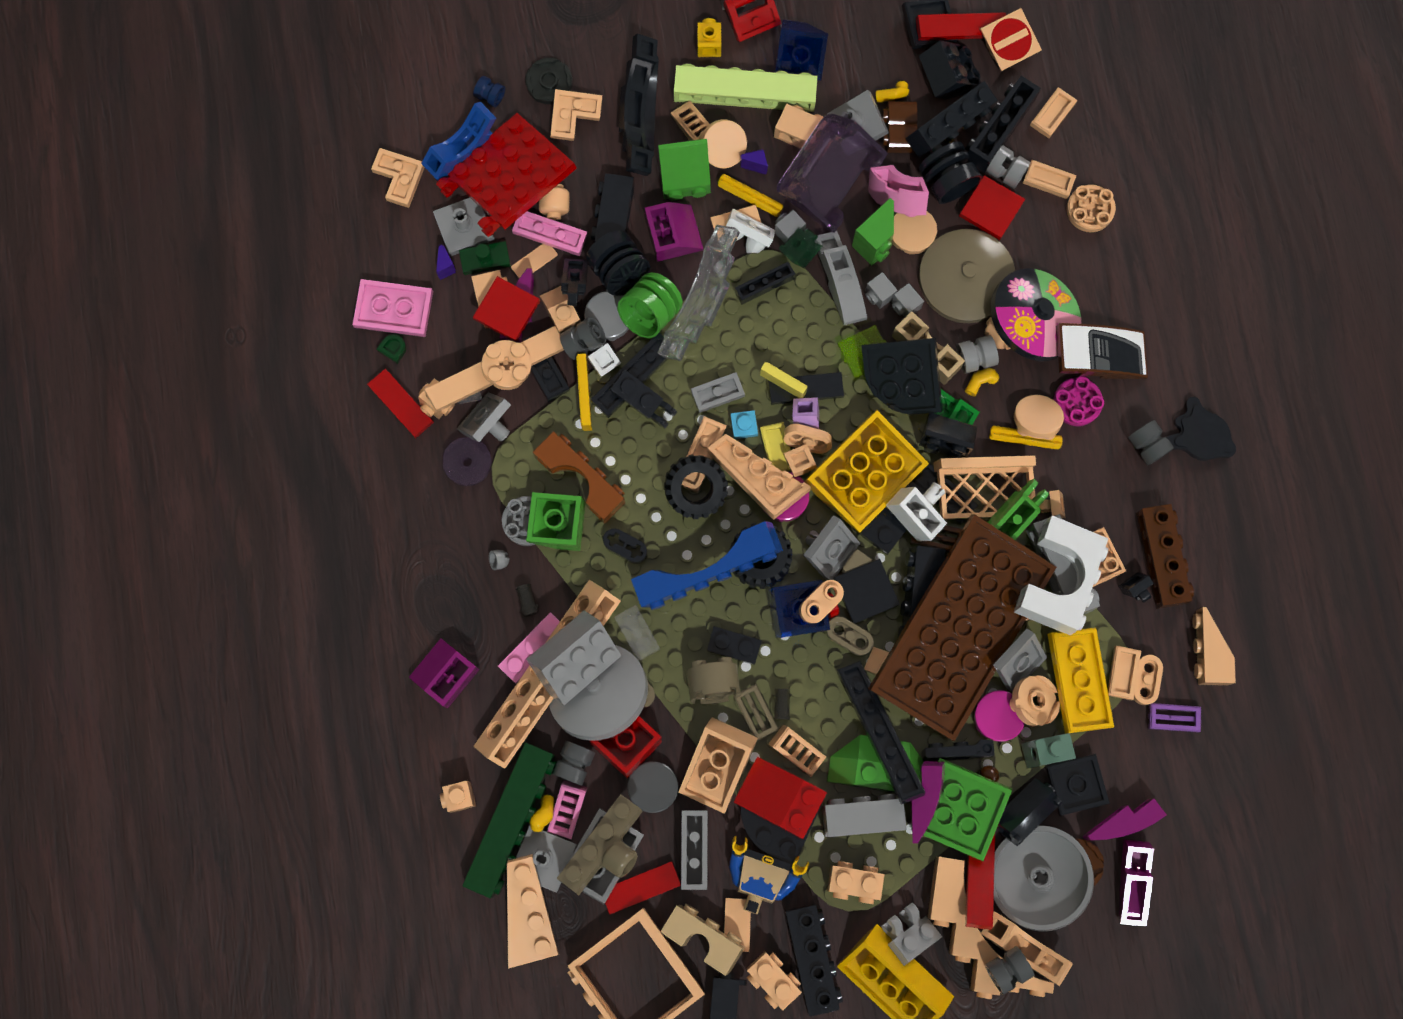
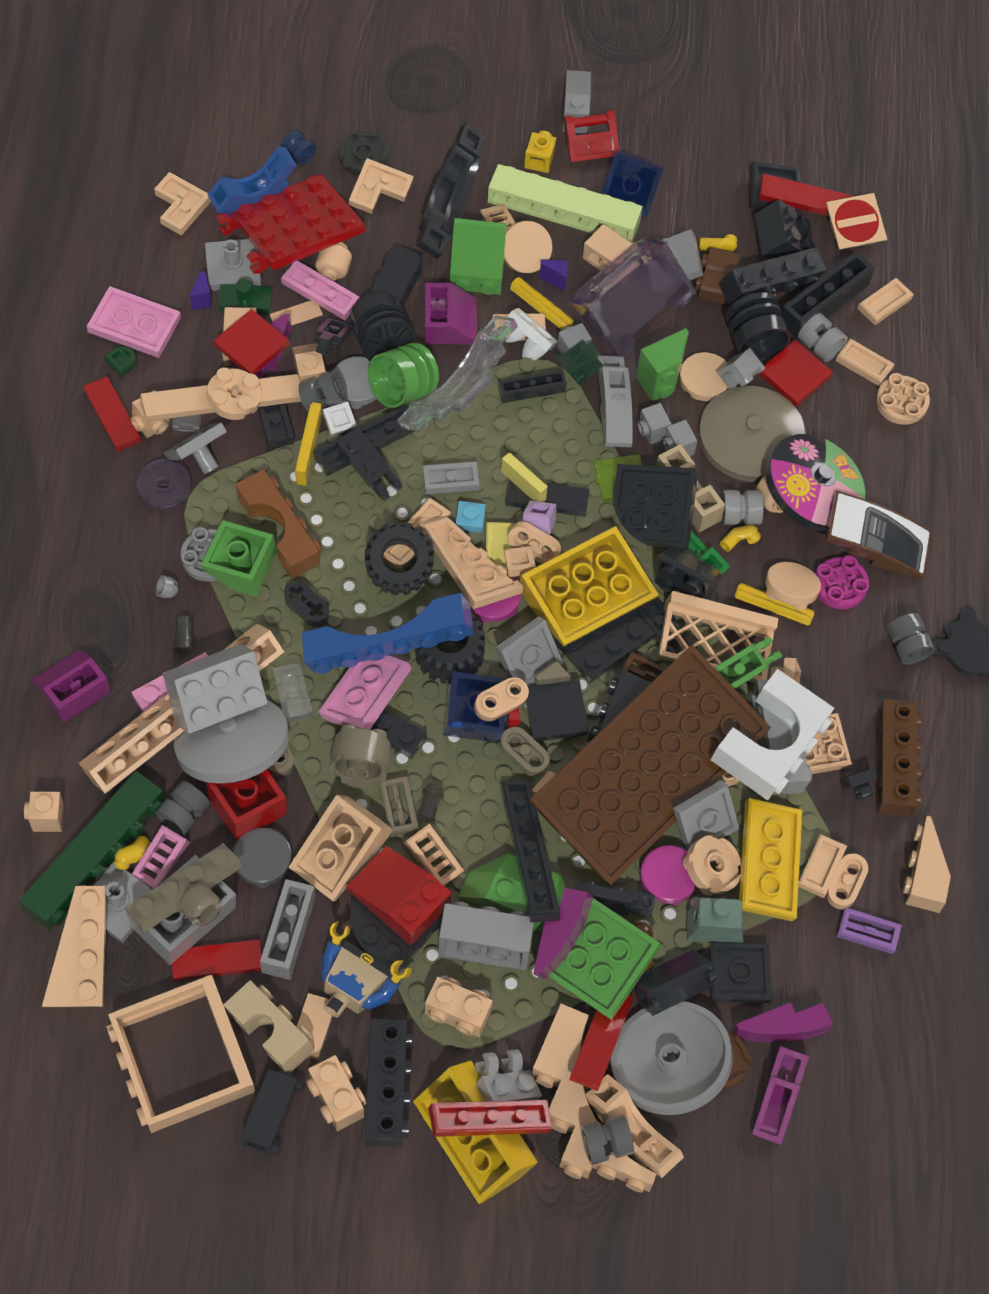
camera: 10 degrees right, 15 degrees down
(700, 620) = (364, 692): none -> bright pink plate
(907, 192) = (706, 333): bright pink brick -> none
(909, 977) = (490, 1118): none -> tile
(917, 511) = (633, 637): white brick -> none
(944, 218) = (741, 369): none -> light grey brick

